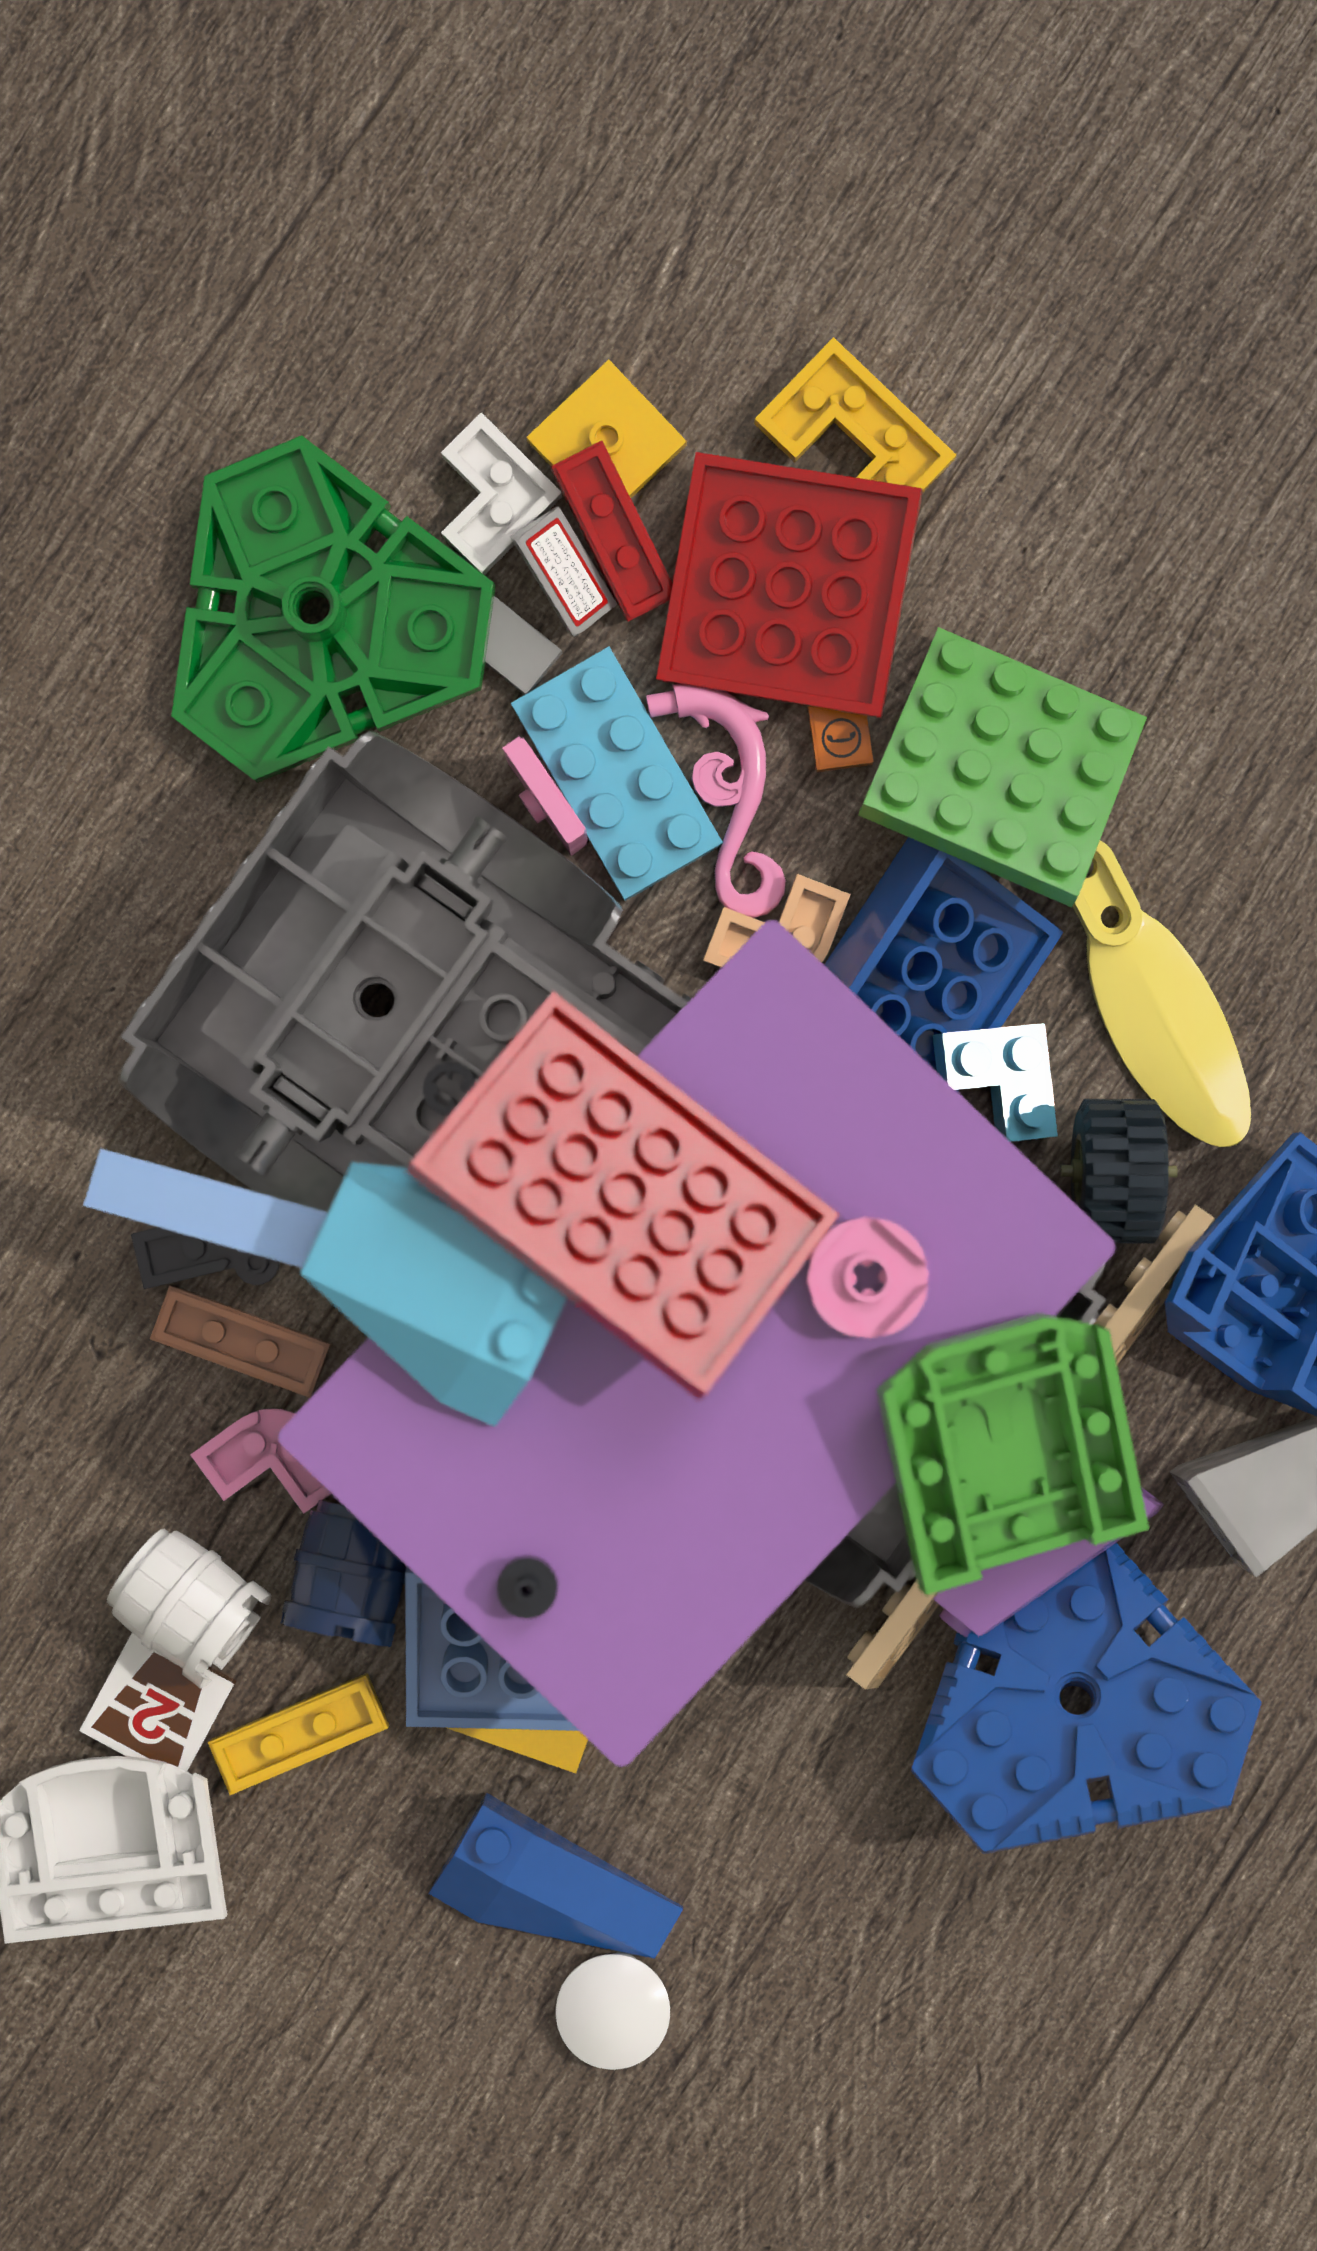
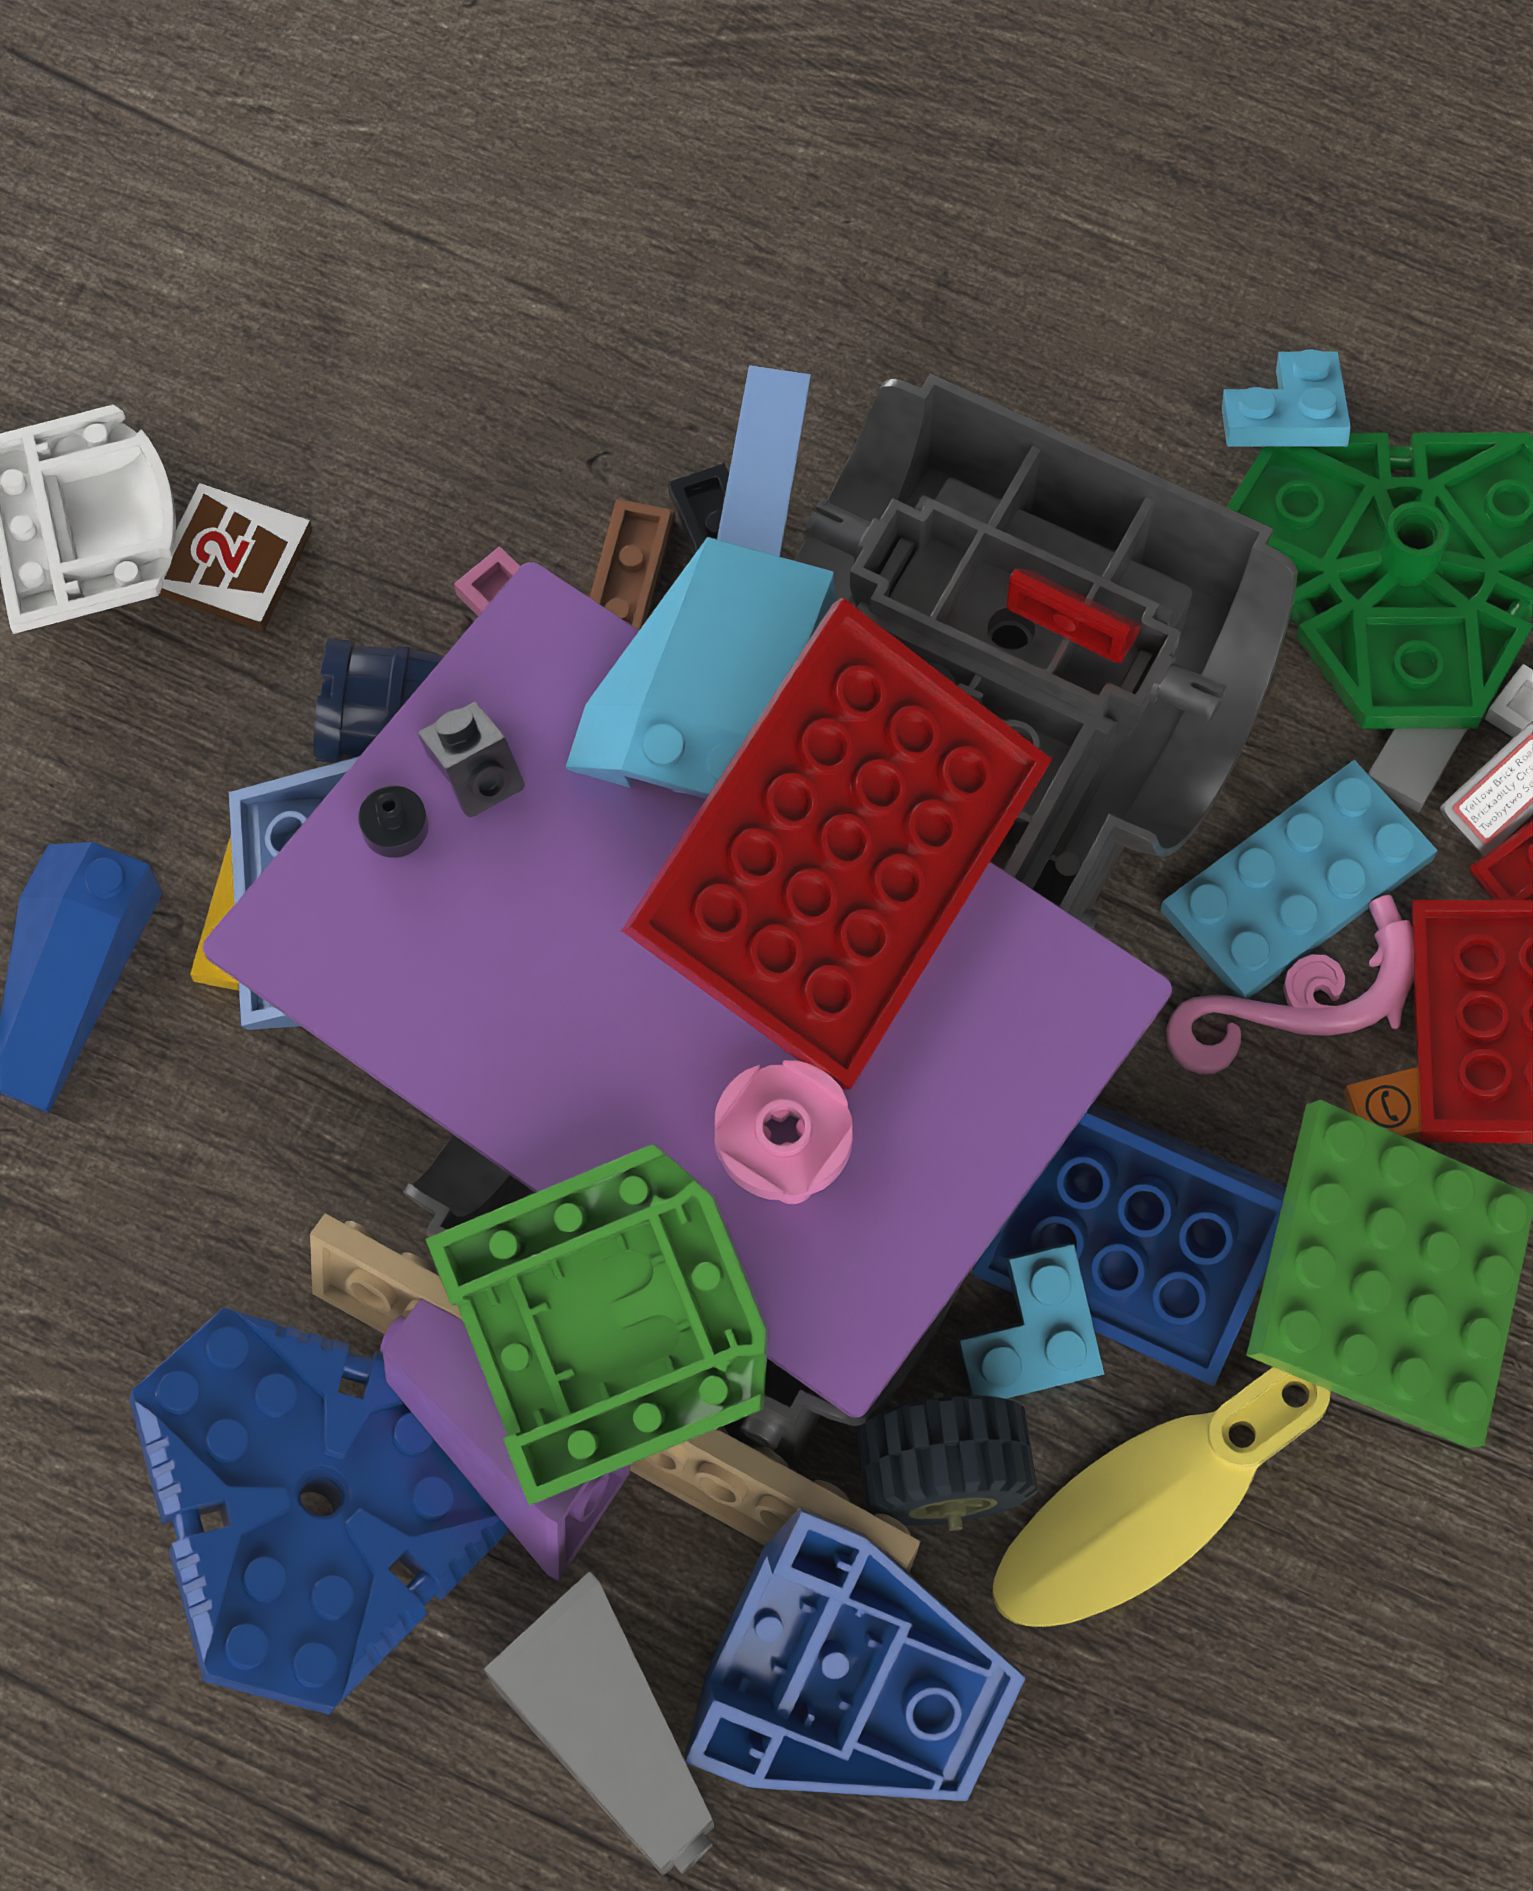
camera: 85 degrees right, 20 degrees down
(157, 684) = (1303, 410): none -> medium azure plate
(186, 1603) = (339, 556): white piece -> none
(298, 1734) = (212, 696): yellow tile -> none
(394, 944) = (1071, 615): none -> red slope
(477, 1511) = (472, 758): none -> black bracket
(543, 797) = (1261, 792): bright pink plate -> none
(809, 914) = (1164, 1092): light nougat plate -> none

